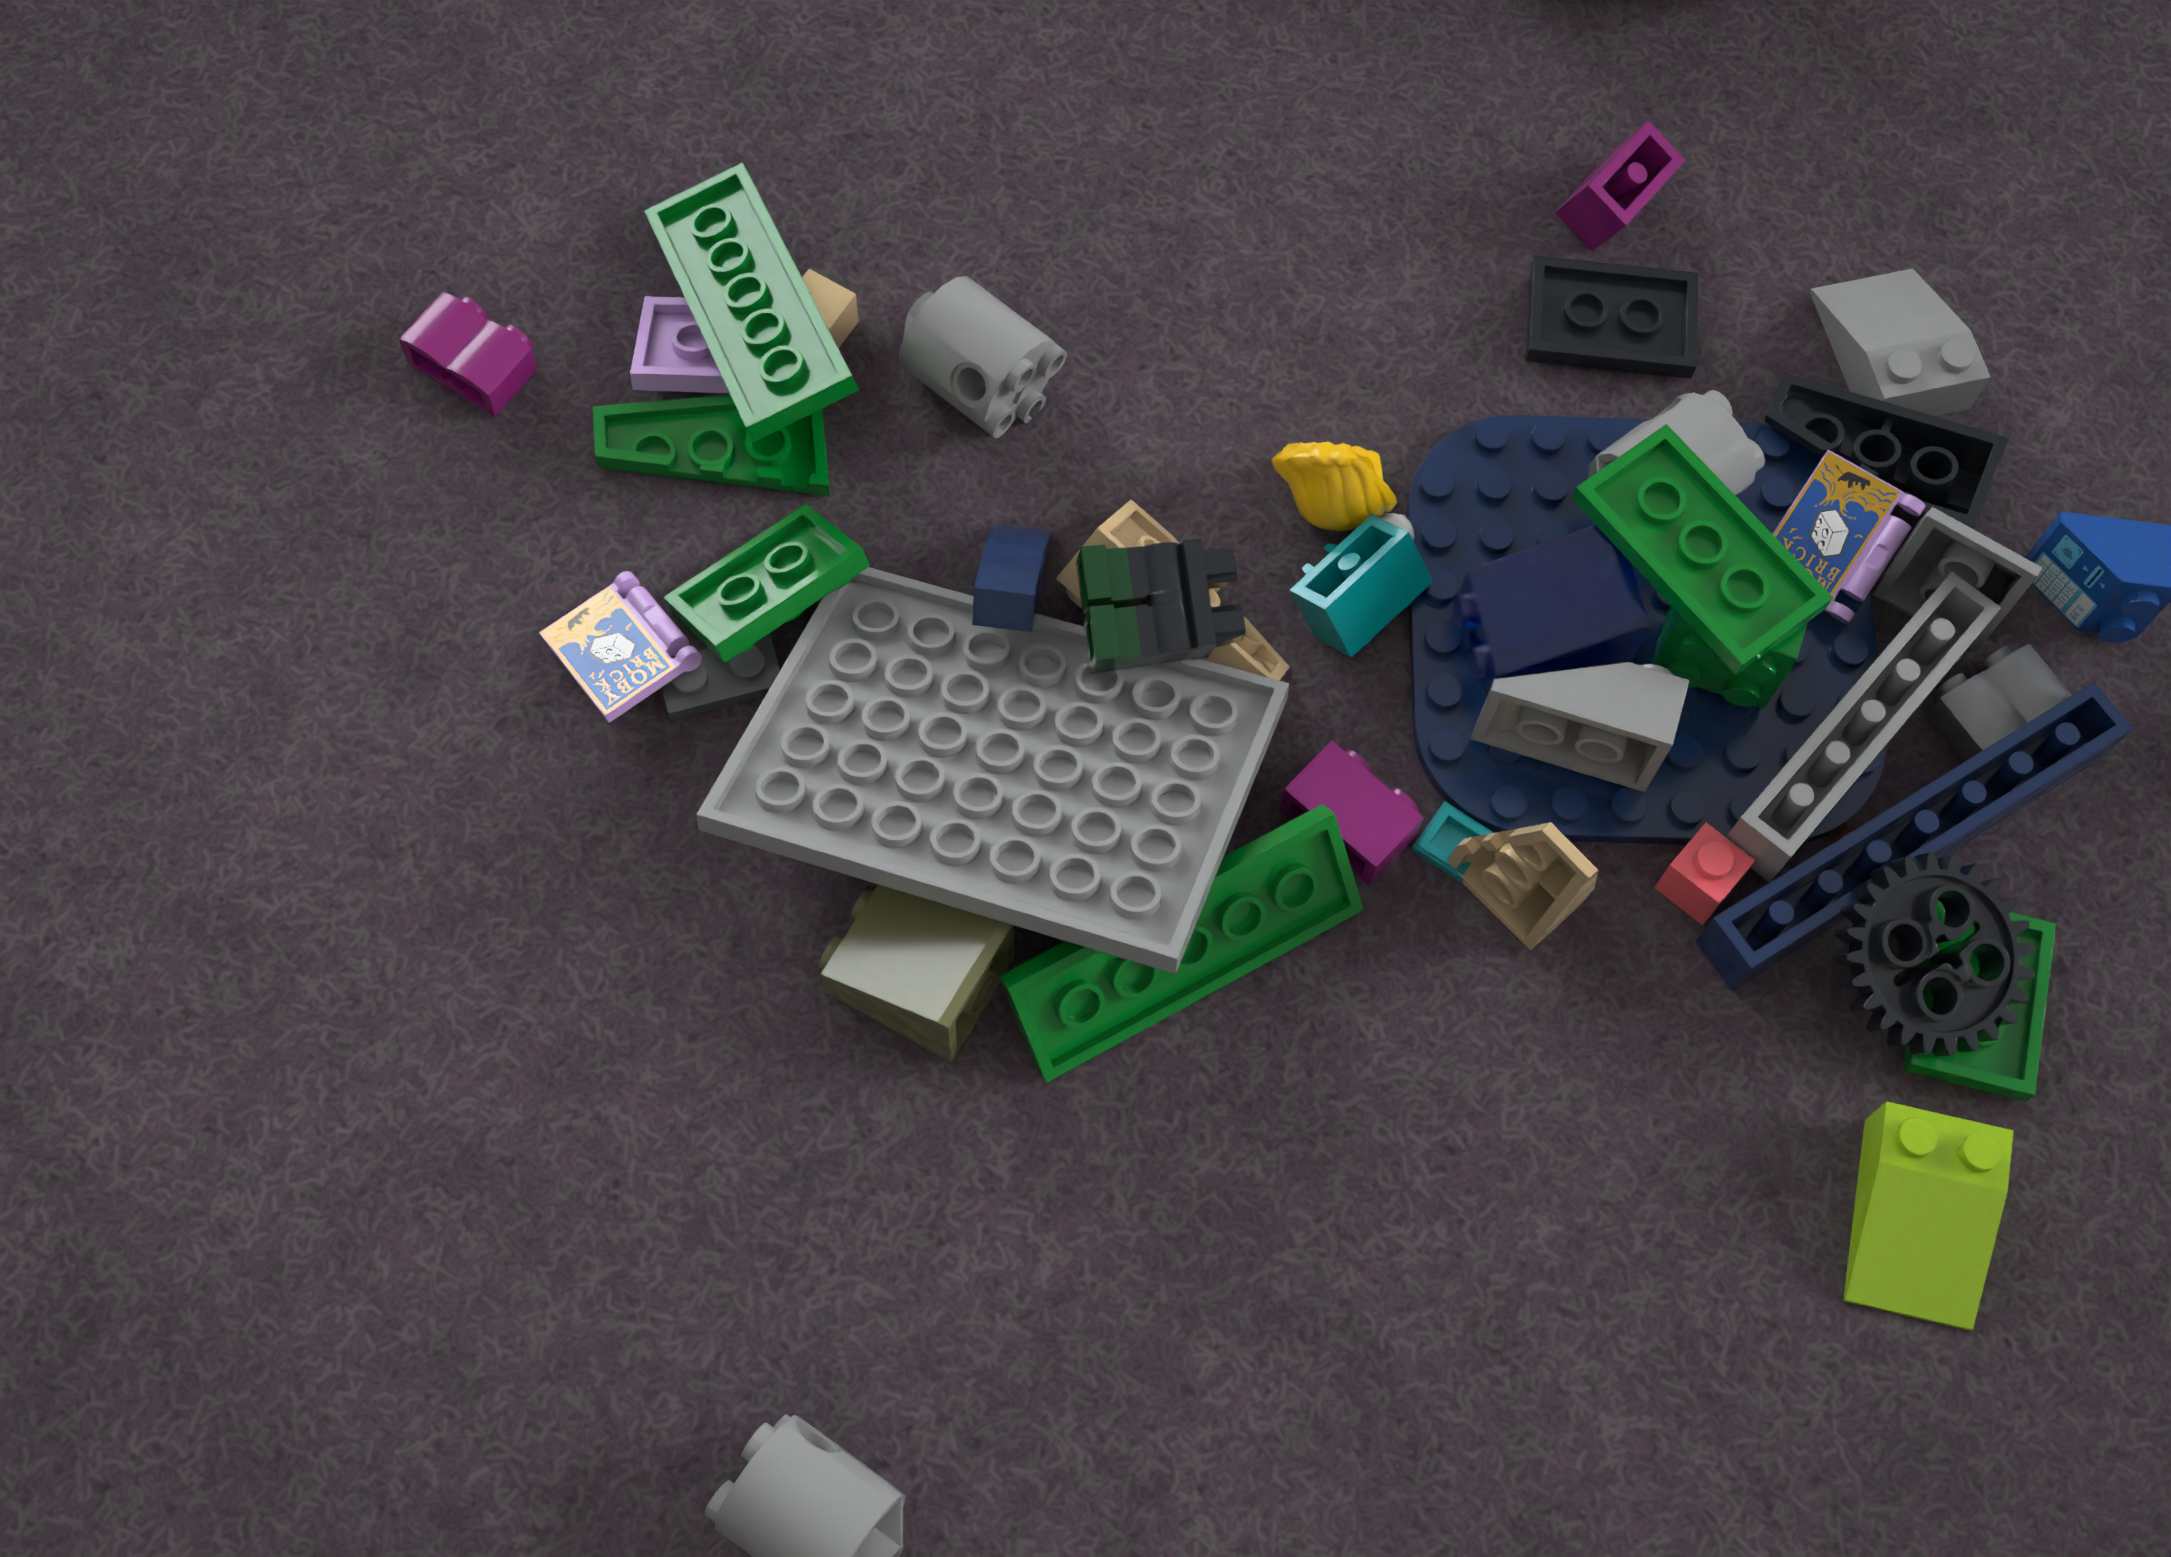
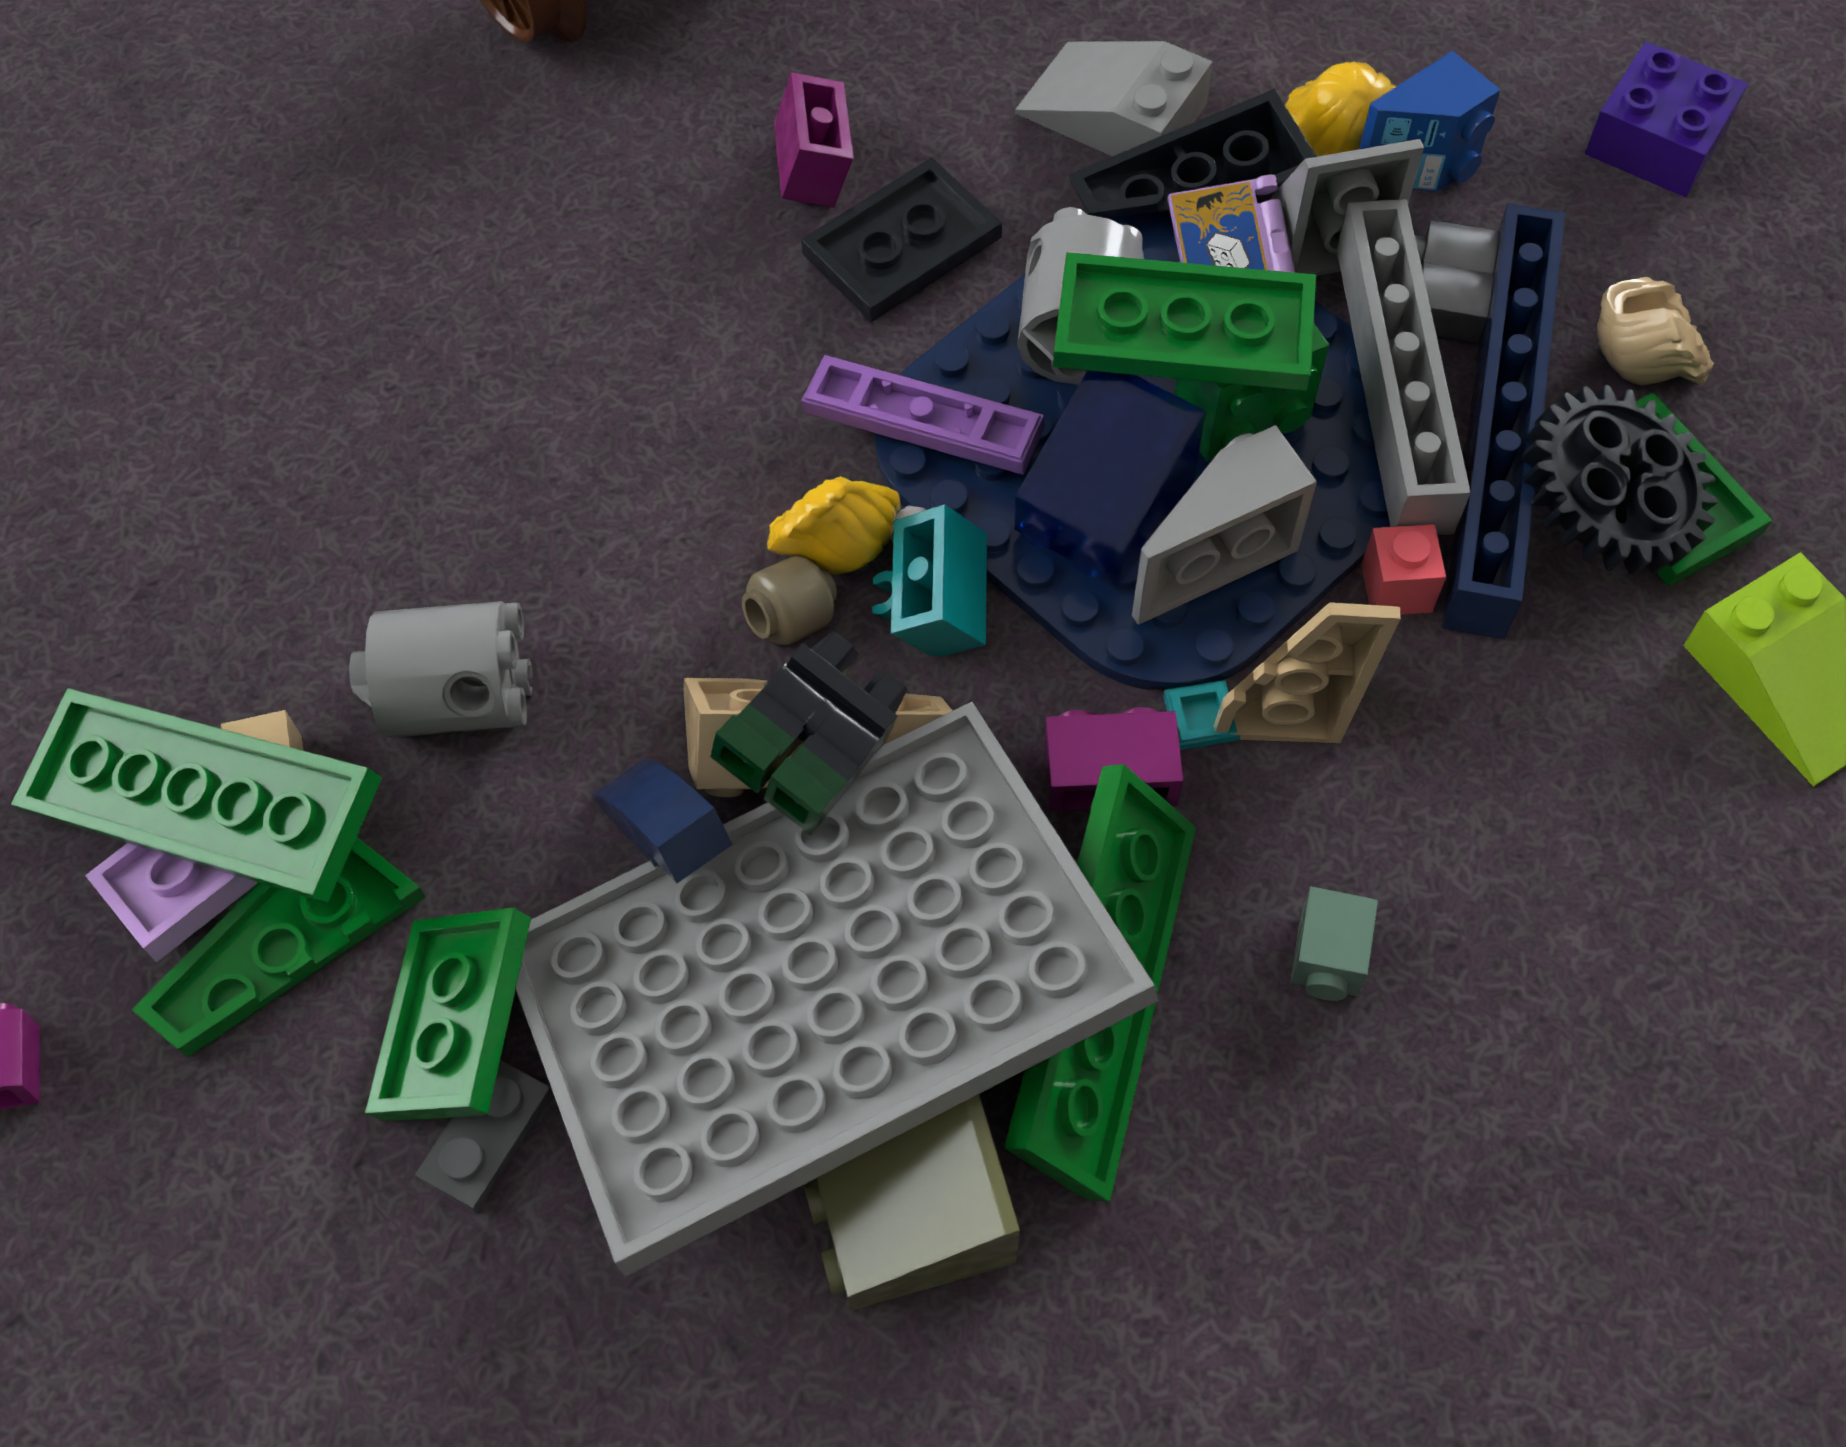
camera: 40 degrees left, 5 degrees down
(620, 646) = (370, 1192): piece -> none
(1252, 508) = (789, 600): none -> dark tan head
(1365, 1067) = (1333, 943): none -> sand green brick
(1478, 457) = (924, 414): none -> medium lavender plate
(2044, 488) = (1336, 106): none -> yellow hair
(2108, 879) = (1650, 334): none -> tan hair

